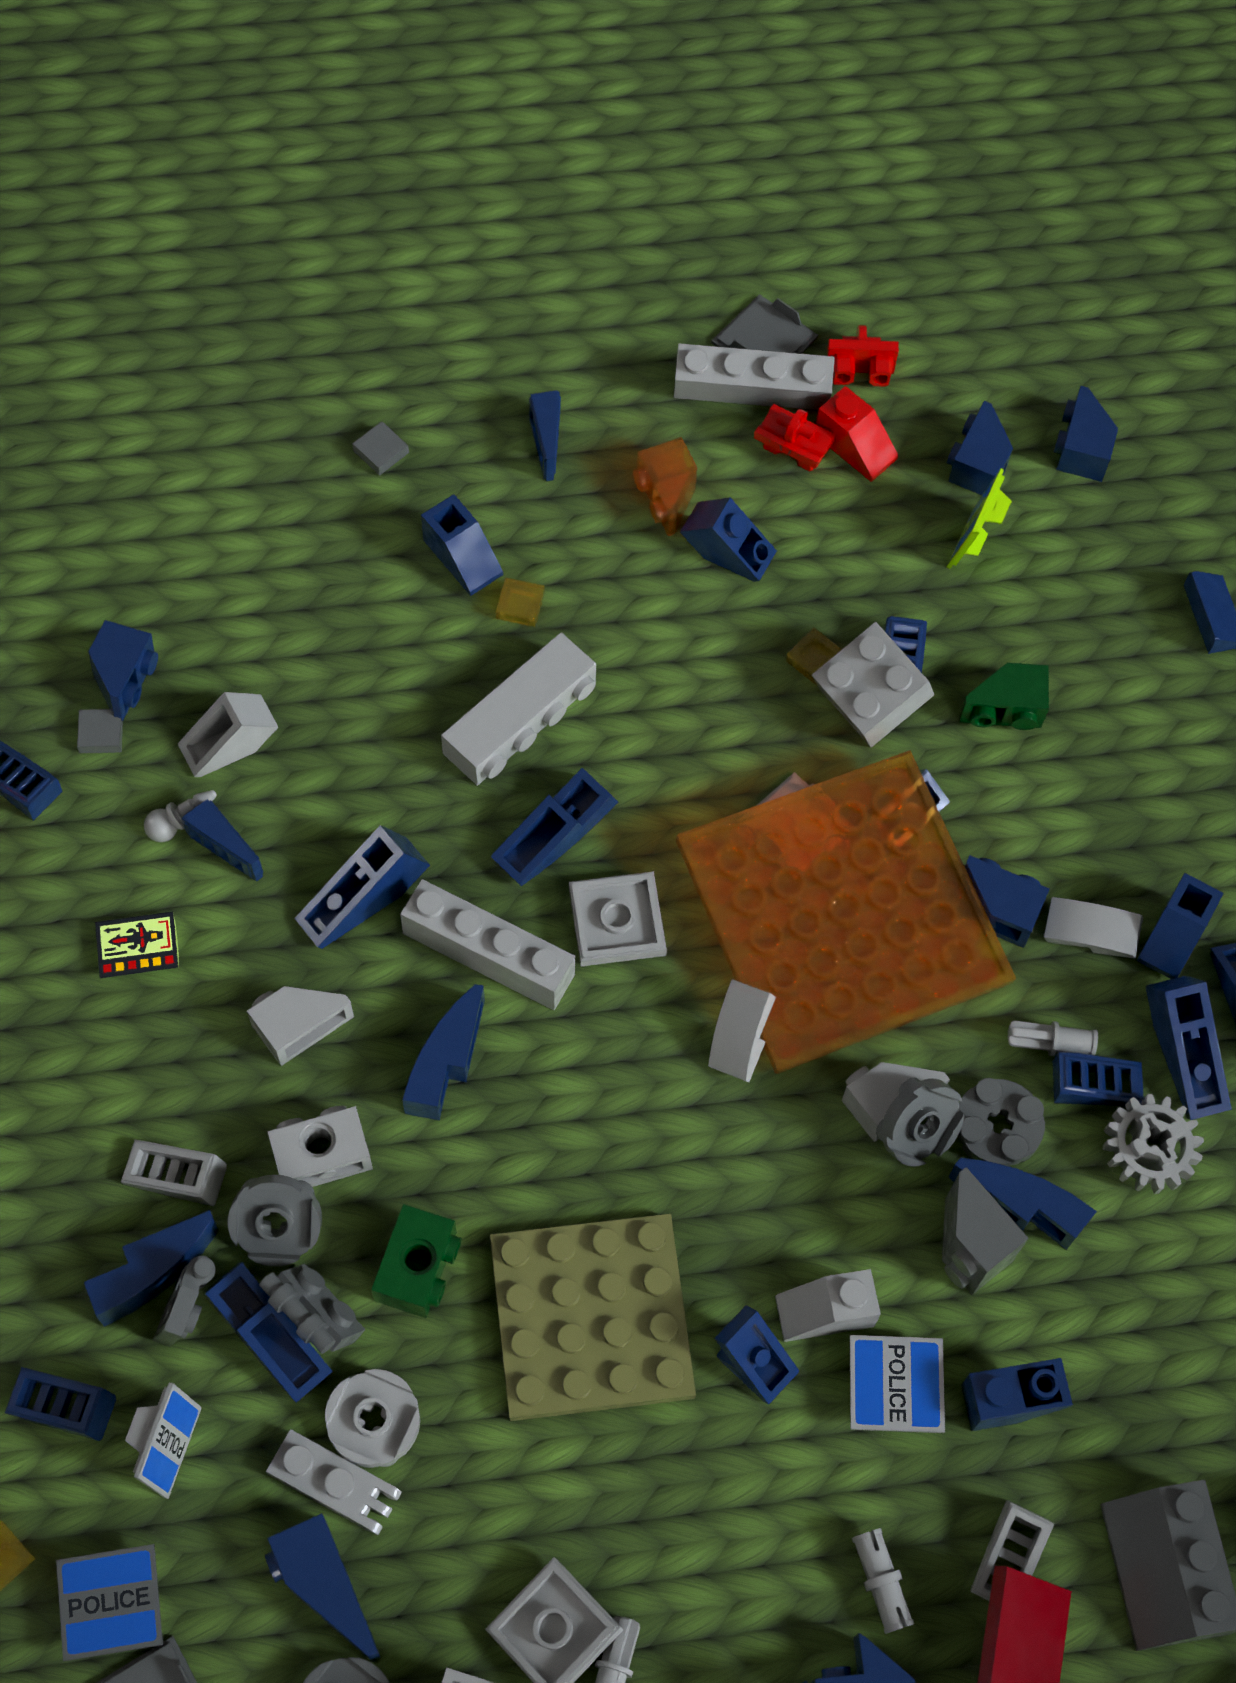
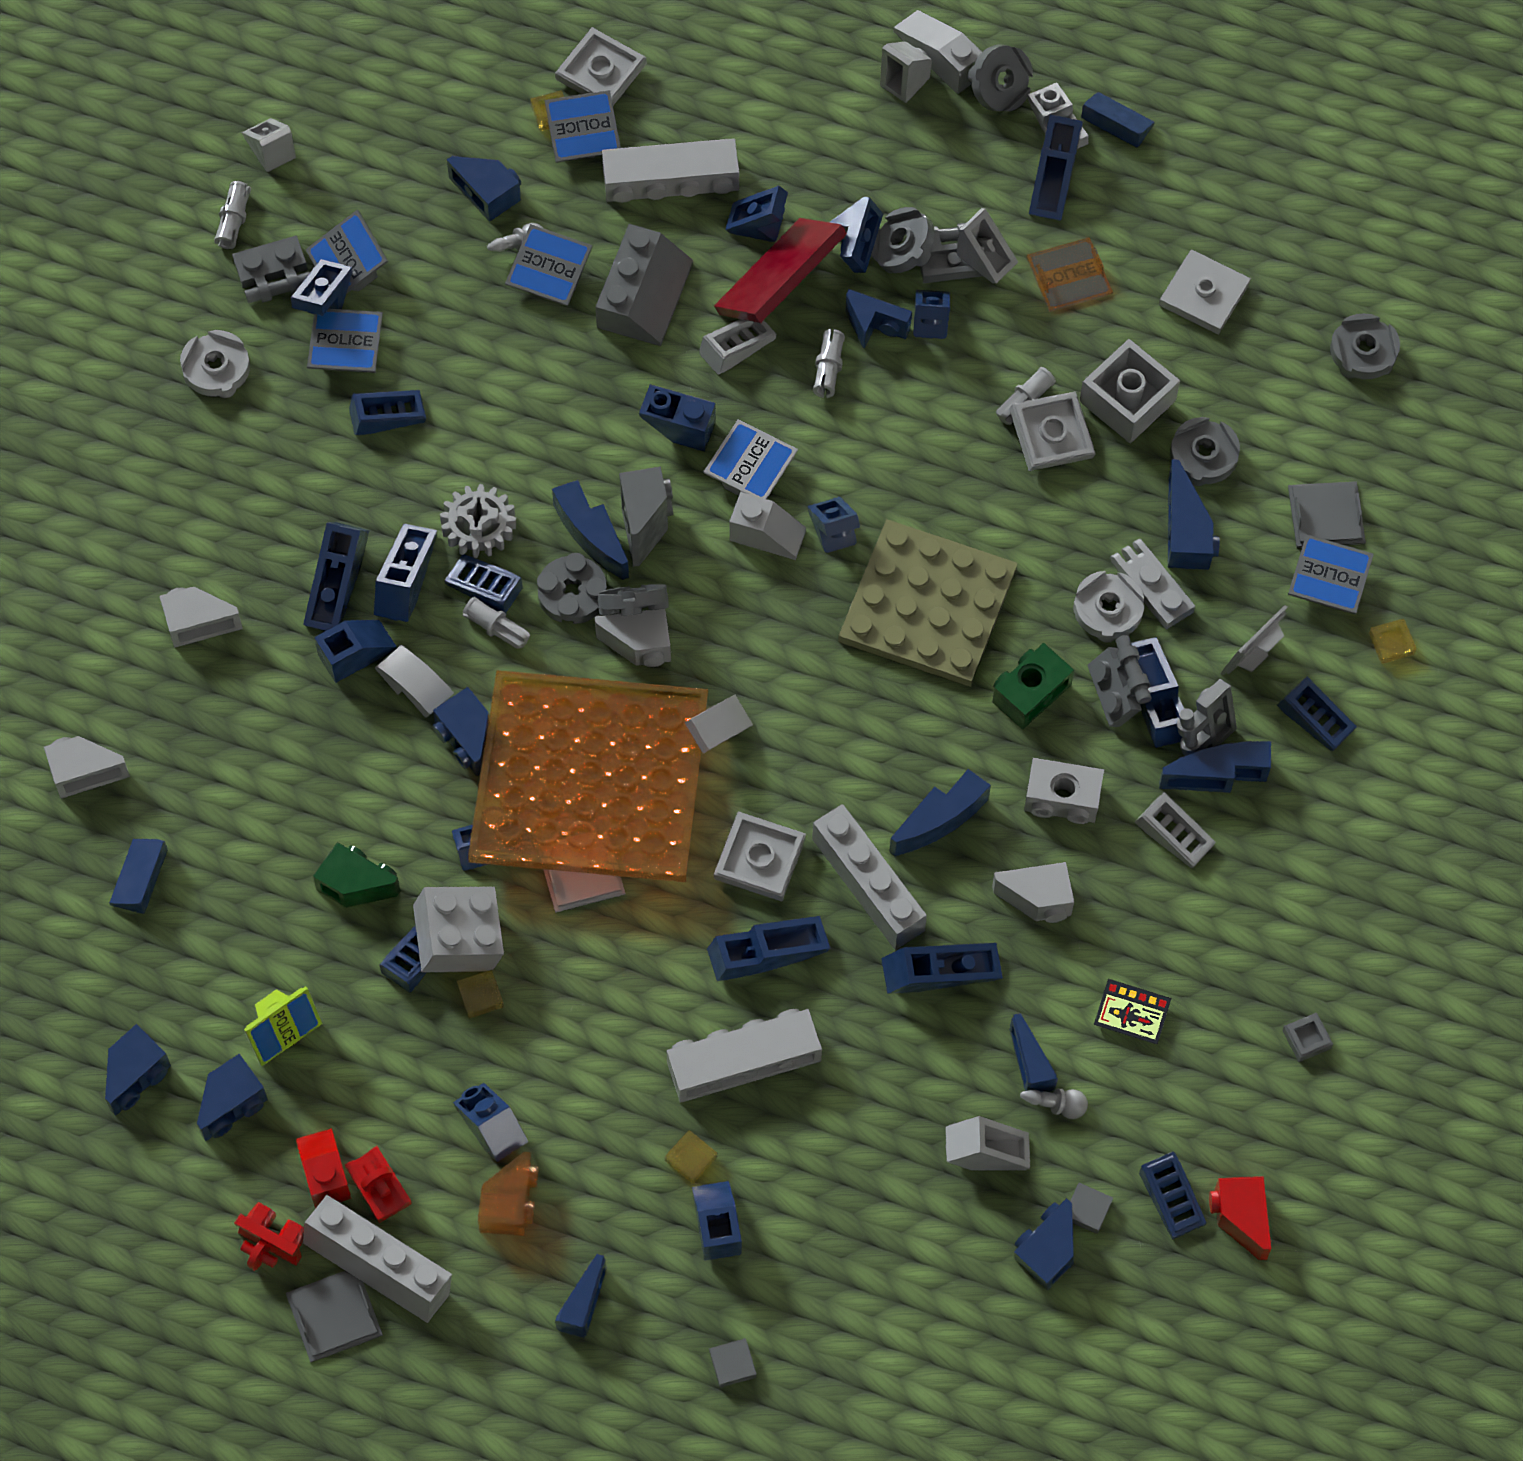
camera: 150 degrees left, 0 degrees up
(282, 1195) = (1118, 751): dark grey plate -> none

